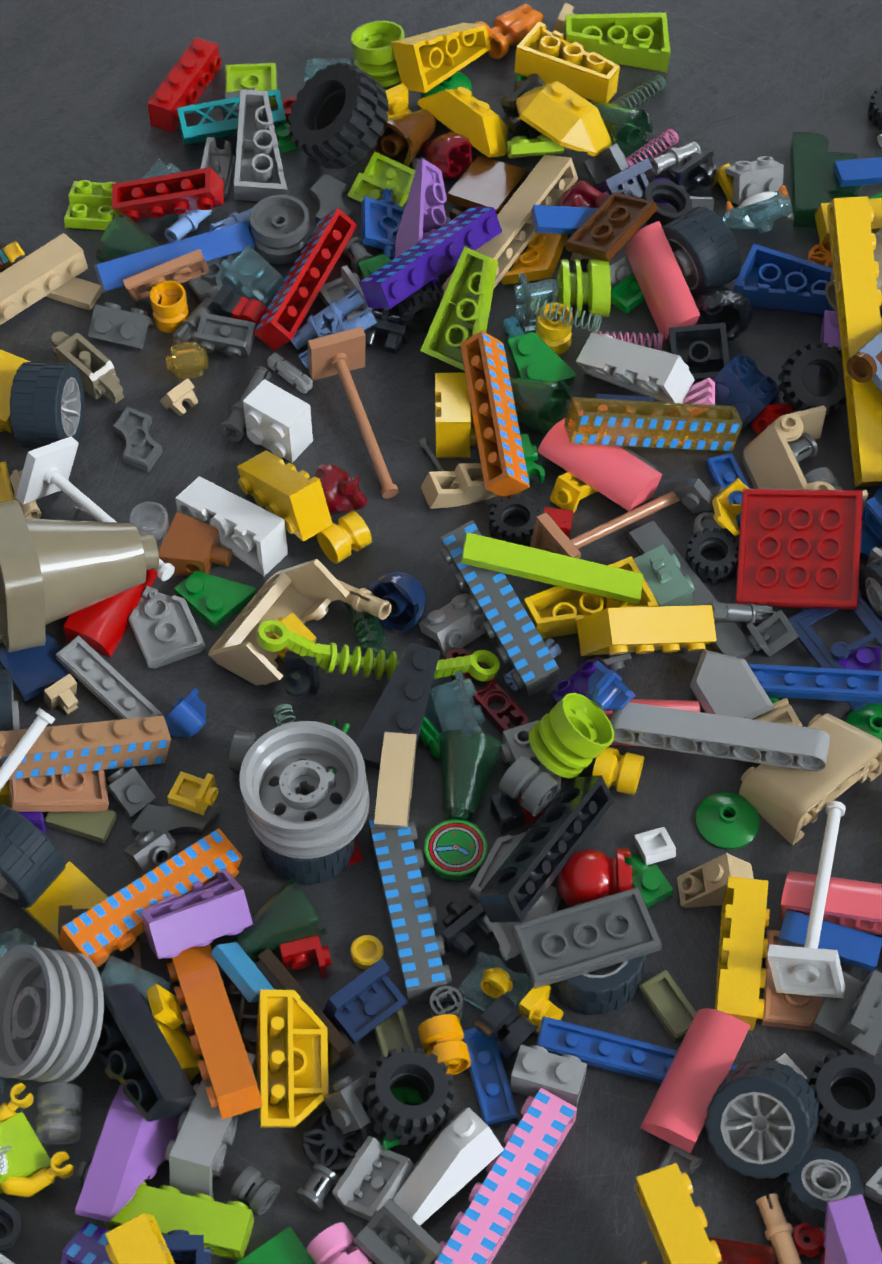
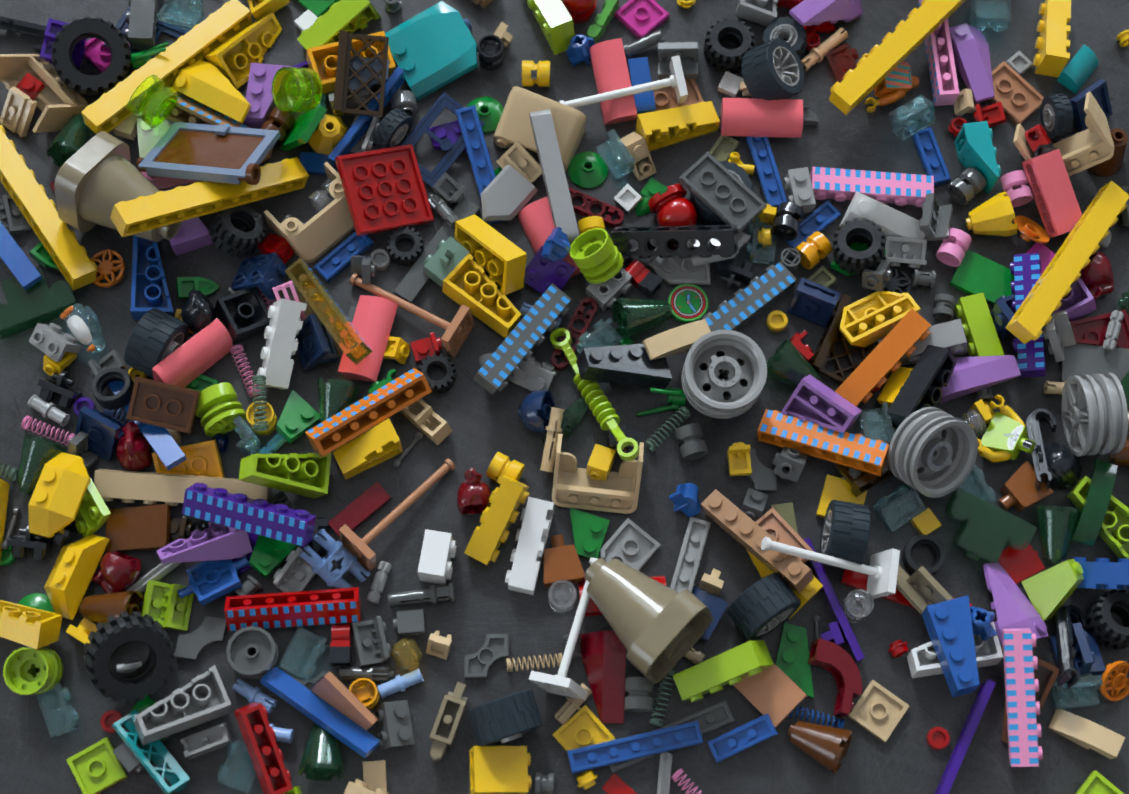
camera: 120 degrees left, 15 degrees up
(66, 1140) = (984, 410): none -> yellow bracket
(110, 456) = (510, 664): none -> tan piece
(161, 347) = (400, 683): none -> light blue pin
(165, 1006) = (883, 396): yellow tile -> none
(221, 379) = (410, 623): none -> dark grey brick
(241, 970) = (836, 368): dark azure tile -> none
(387, 386) = (360, 508): none -> dark red tile
(525, 782) = (640, 266): dark grey wheel -> none
(552, 568) = (486, 314): lime tile -> none
(638, 1019) = (735, 158): none -> yellow arm
(672, 793) = (589, 202): none -> dark red beam
(725, 511) = (374, 246): yellow bracket -> none
(746, 850) = (616, 155): none -> clear light blue bracket
(763, 328) = (186, 284): none -> green plate

